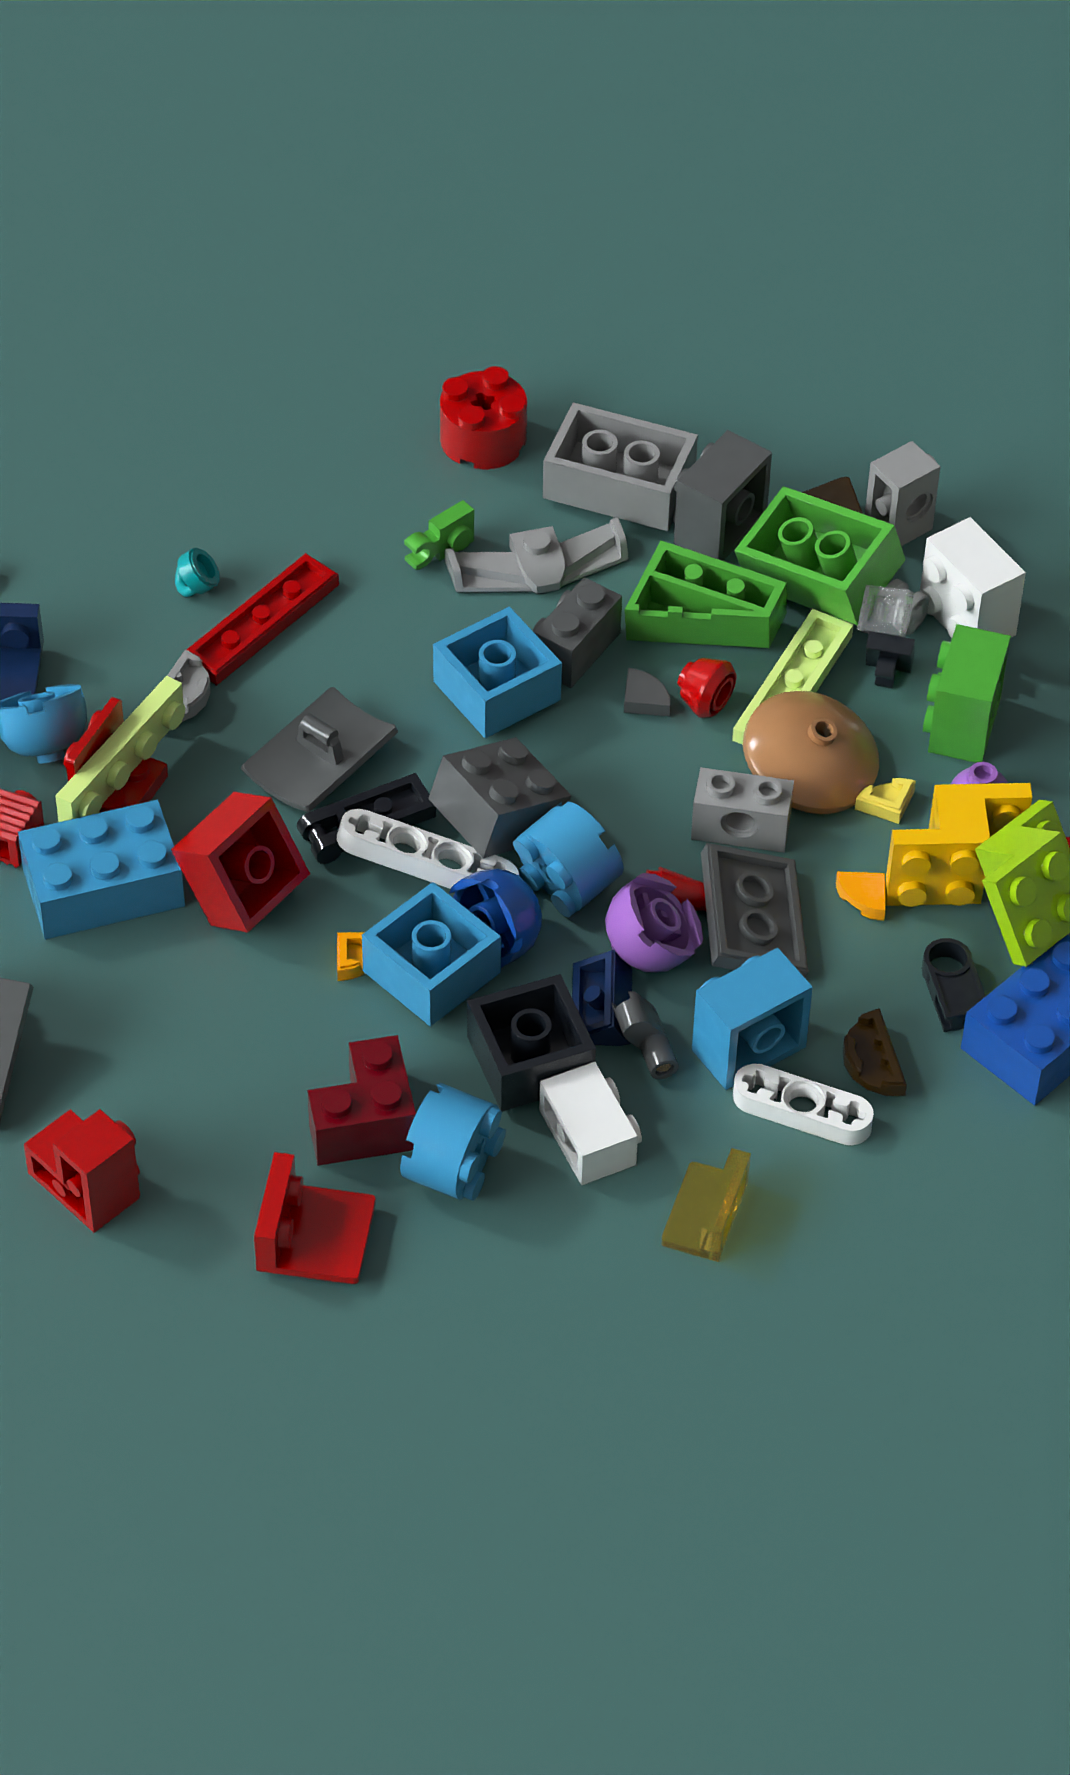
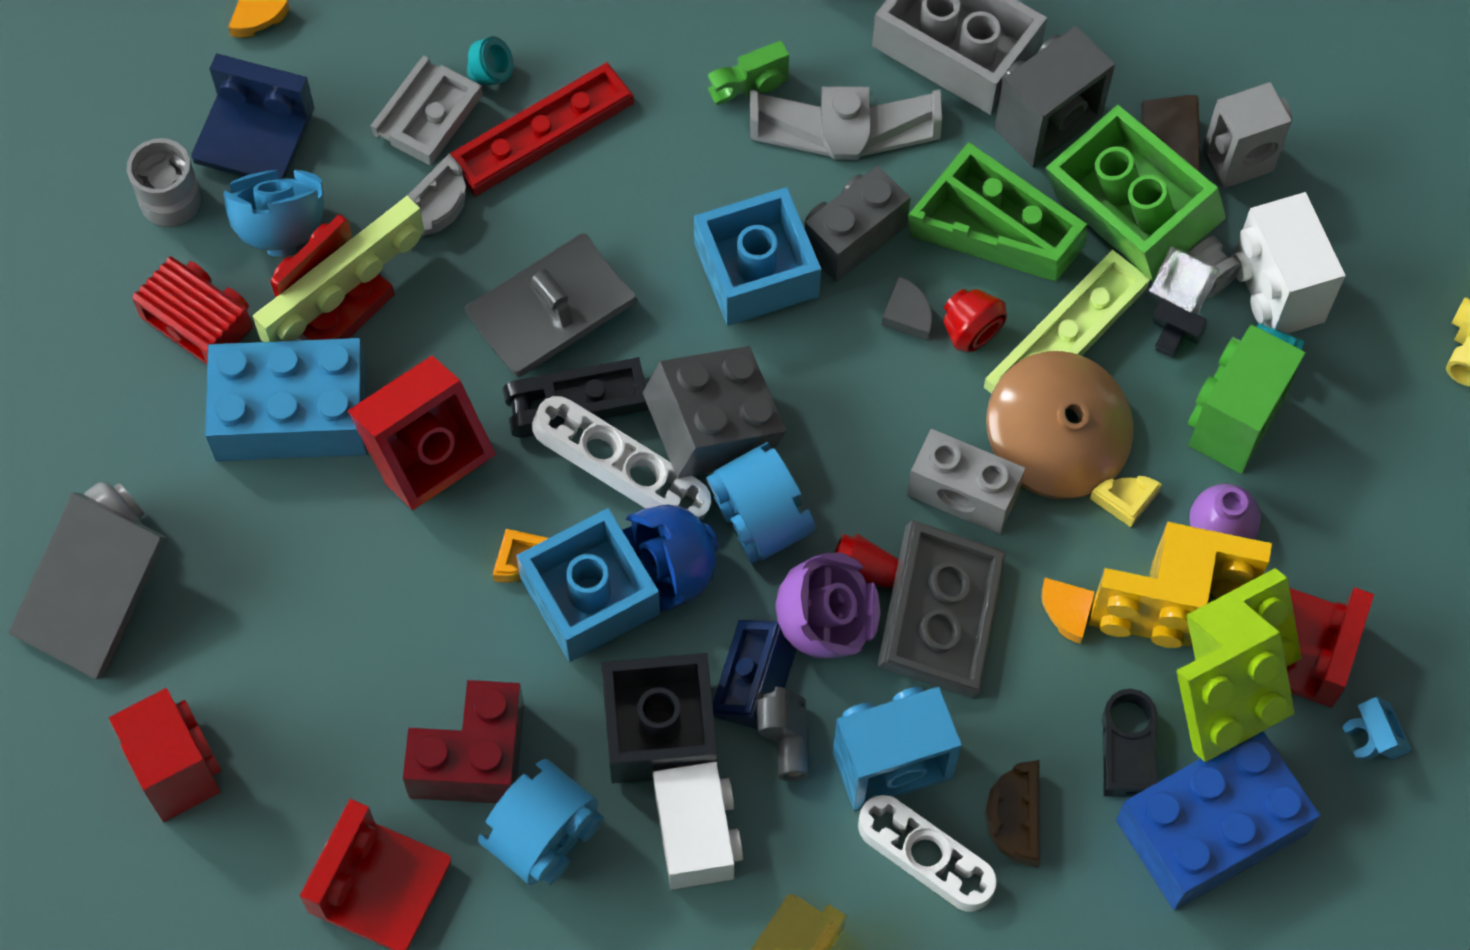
camera: 15 degrees right, 15 degrees up
(151, 621) = (427, 110): none -> light grey plate

